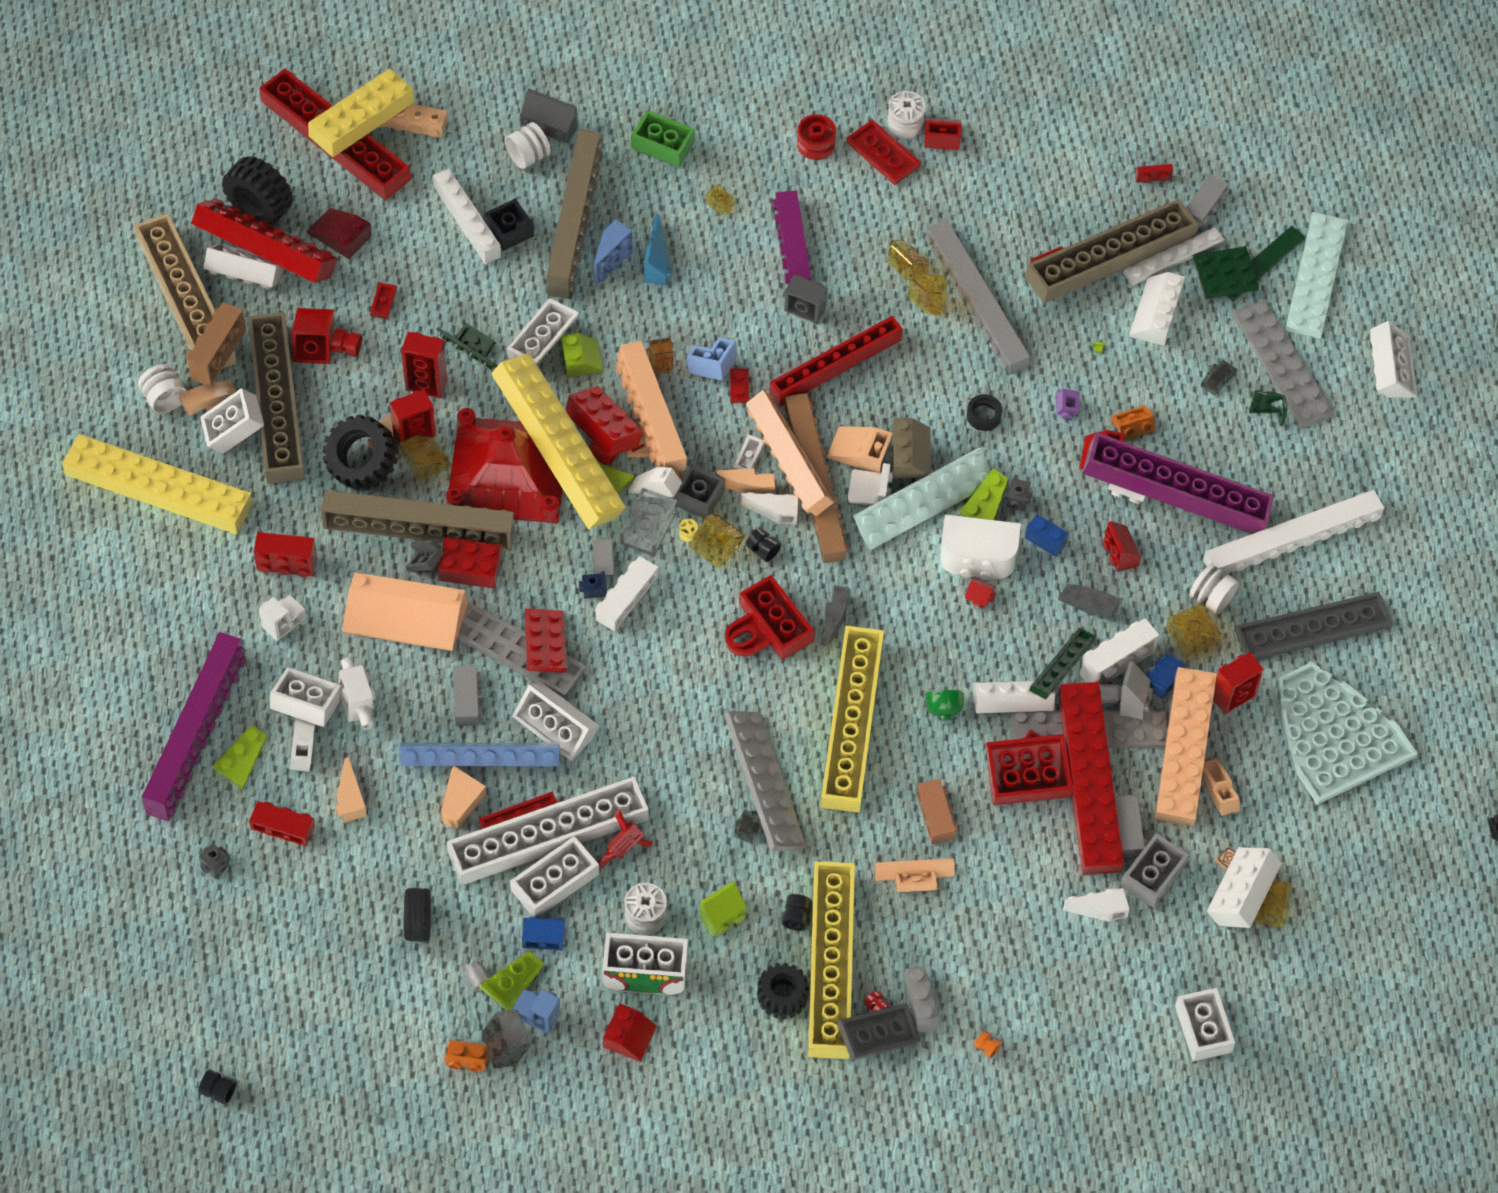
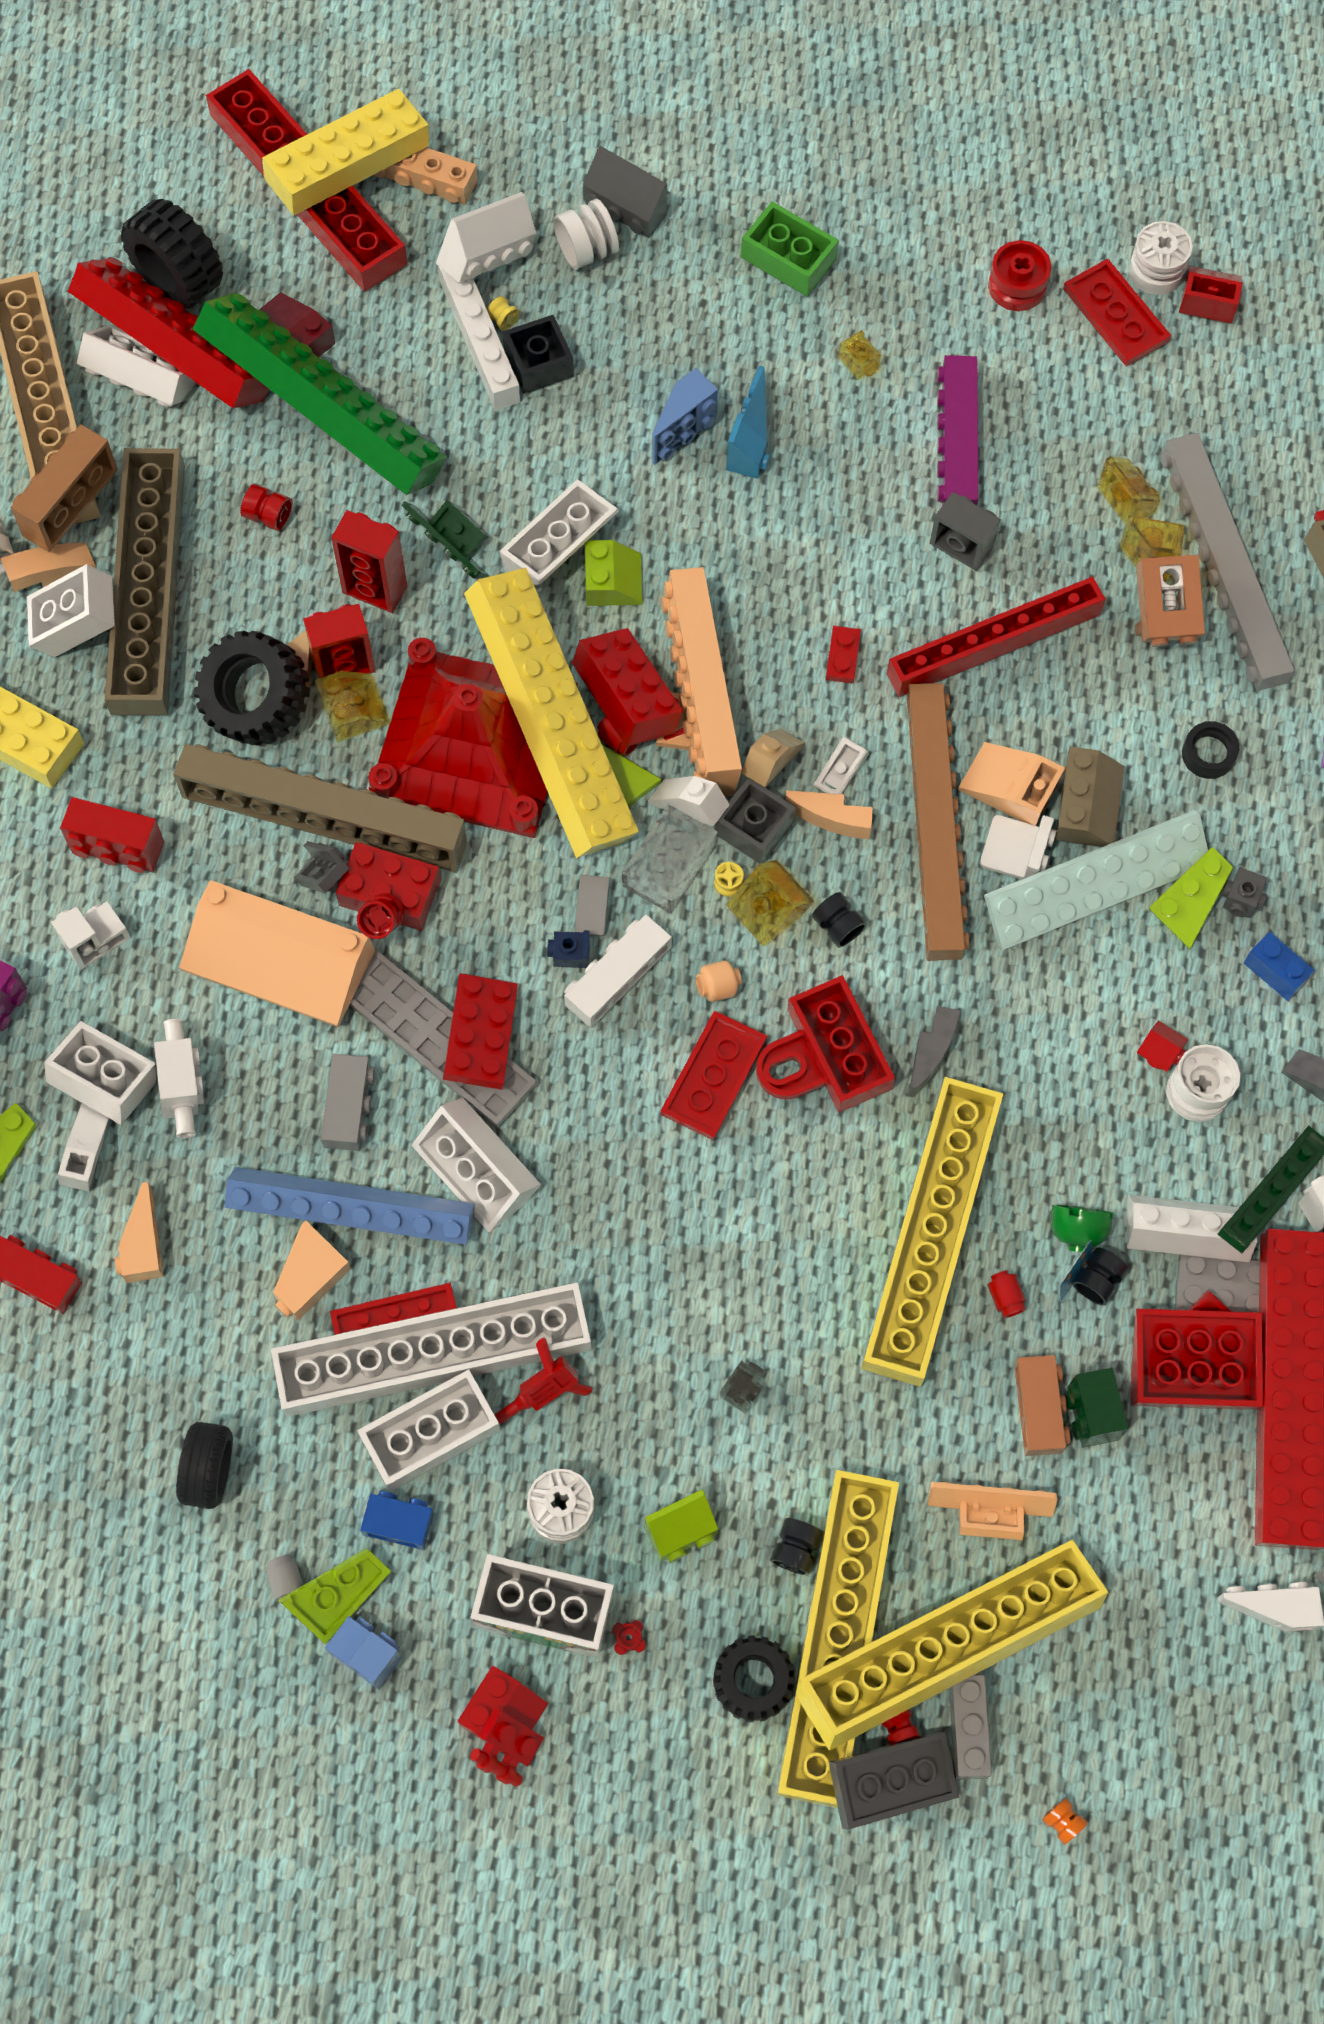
camera: 10 degrees right, 10 degrees up
(312, 335) = (216, 489): red slope -> none
(371, 265) = (320, 392): none -> green brick
(383, 300) = (328, 456): red plate -> none
(464, 155) = (487, 238): none -> white slope
(467, 1056) = (245, 1709): orange bracket -> none
(470, 577) = (375, 920): none -> red wheel
(480, 202) = (503, 313): none -> light yellow wheel
(505, 1039) = (305, 1699): clear smoke brick -> none
(574, 214) = (637, 351): dark tan brick -> none
(637, 1044) = (510, 1737): none -> red plate
(660, 356) = (729, 593): clear orange brick -> none
(692, 591) = (718, 981): none -> light nougat head
(698, 648) = (713, 1075): none -> red plate
(700, 975) = (633, 1629): none -> red plate
(702, 451) = (770, 756): none -> tan slope
(712, 362) = (810, 613): light blue brick -> none
(765, 781) = (781, 1316): light grey plate -> none
(778, 508) = (868, 861): white slope -> none
(789, 453) = (901, 779): light nougat brick -> none
(901, 947) = (950, 1644): none -> light yellow brick
(905, 750) = (1007, 1294): none -> red brick
(945, 729) = (1074, 1271): none -> dark azure sticker
(946, 338) = (1170, 625): none -> nougat brick
(962, 731) = (1102, 1274): none -> black wheel
(970, 805) = (1096, 1408): none -> dark green brick
(979, 547) = (1171, 973): white brick -> none
(1008, 609) = (1212, 1072): none -> white wheel

